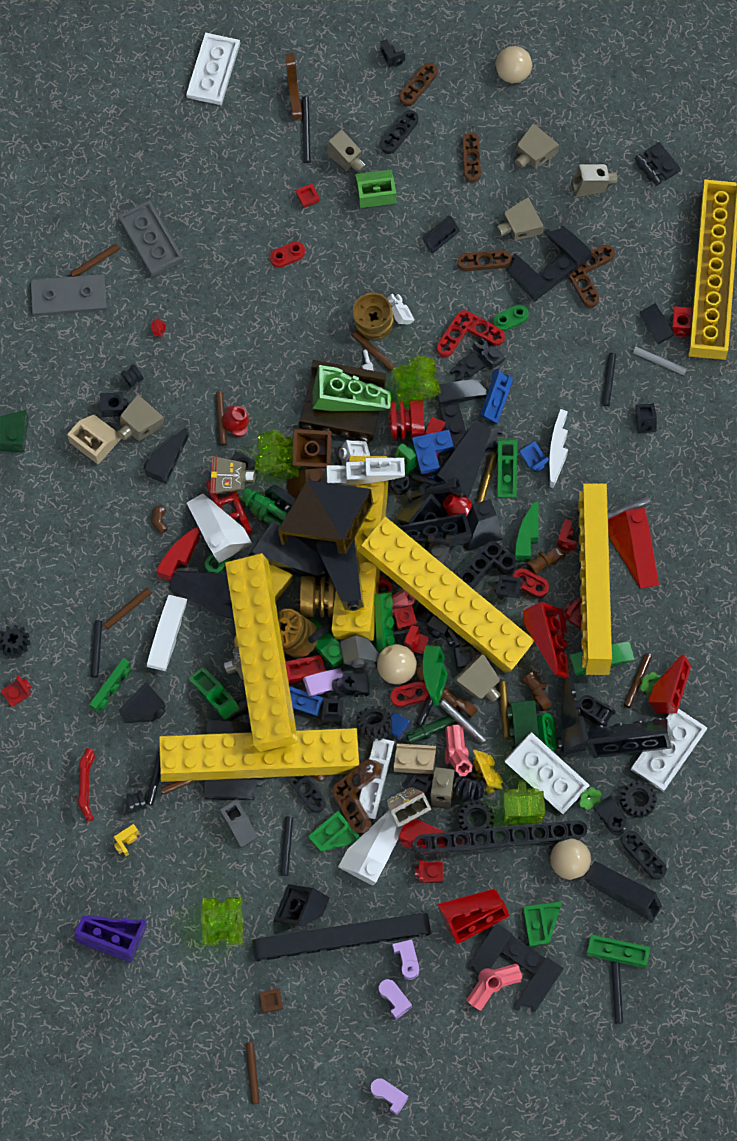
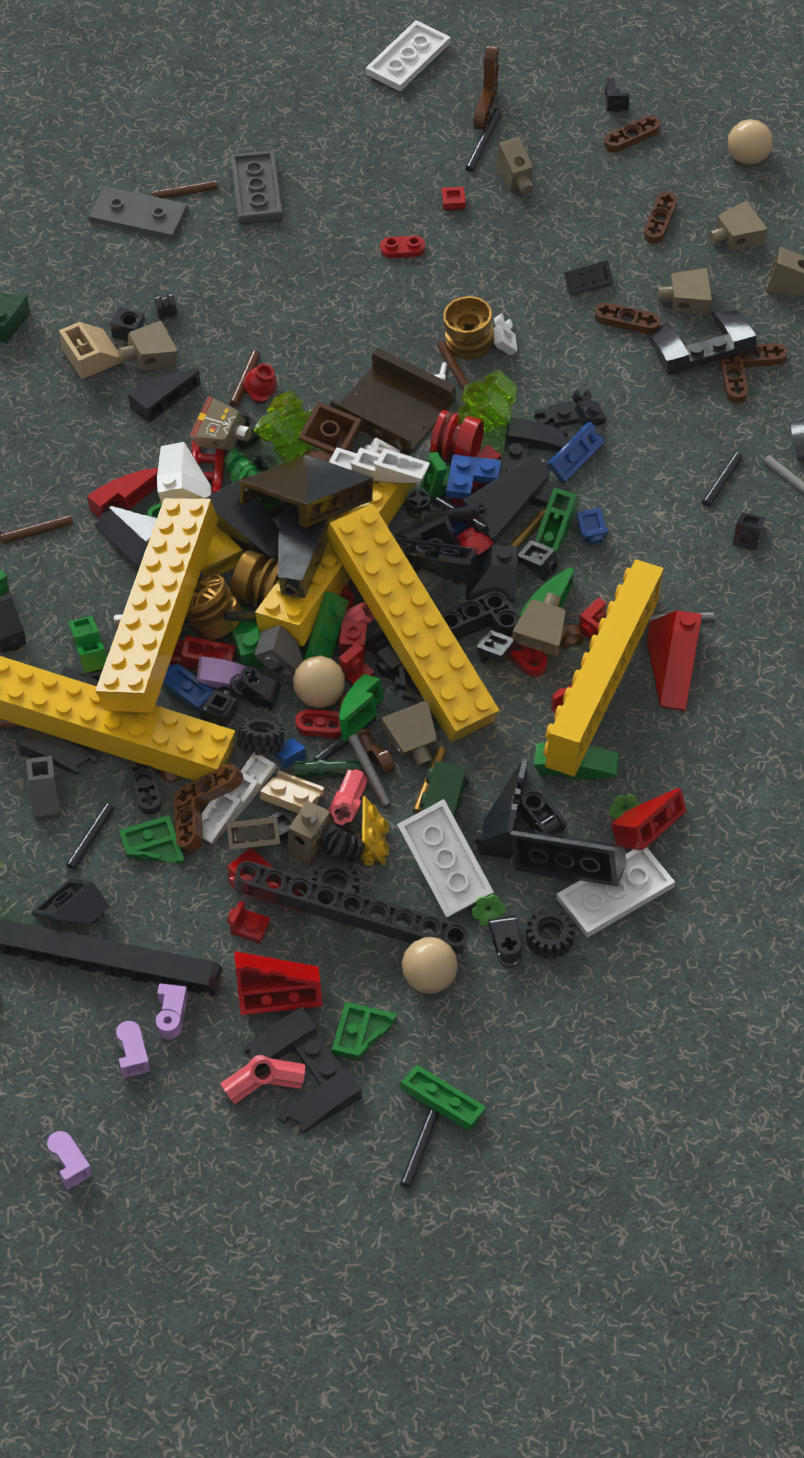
camera: 20 degrees right, 15 degrees down
(156, 519) = (117, 453): reddish brown arm -> none
(158, 327) = (219, 269): red plate -> none
(166, 633) = (64, 566): white slope -> none
(345, 393) = (397, 392): bright green wedge -> none
(371, 851) = (189, 876): white wedge -> none
(376, 188) = (533, 214): bright green slope -> none
(400, 124) = (592, 164): black beam -> none
(468, 326) = (576, 375): red beam -> none
(507, 499) = (539, 558): none -> black bracket
(512, 319) = (632, 383): green plate -> none
(523, 806) = (398, 883): clear neon green brick -> none
(537, 560) = (541, 625): none -> dark tan torso
(537, 689) = (480, 769): reddish brown connector -> none
(547, 629) = (521, 709): red wedge -> none
(547, 730) = (470, 816): green plate -> none
(557, 452) = (624, 527): white slope -> none
(624, 890) = (483, 1029): black slope -> none
(630, 847) = (532, 990): black beam -> none
(637, 681) = (603, 810): reddish brown bar -> none

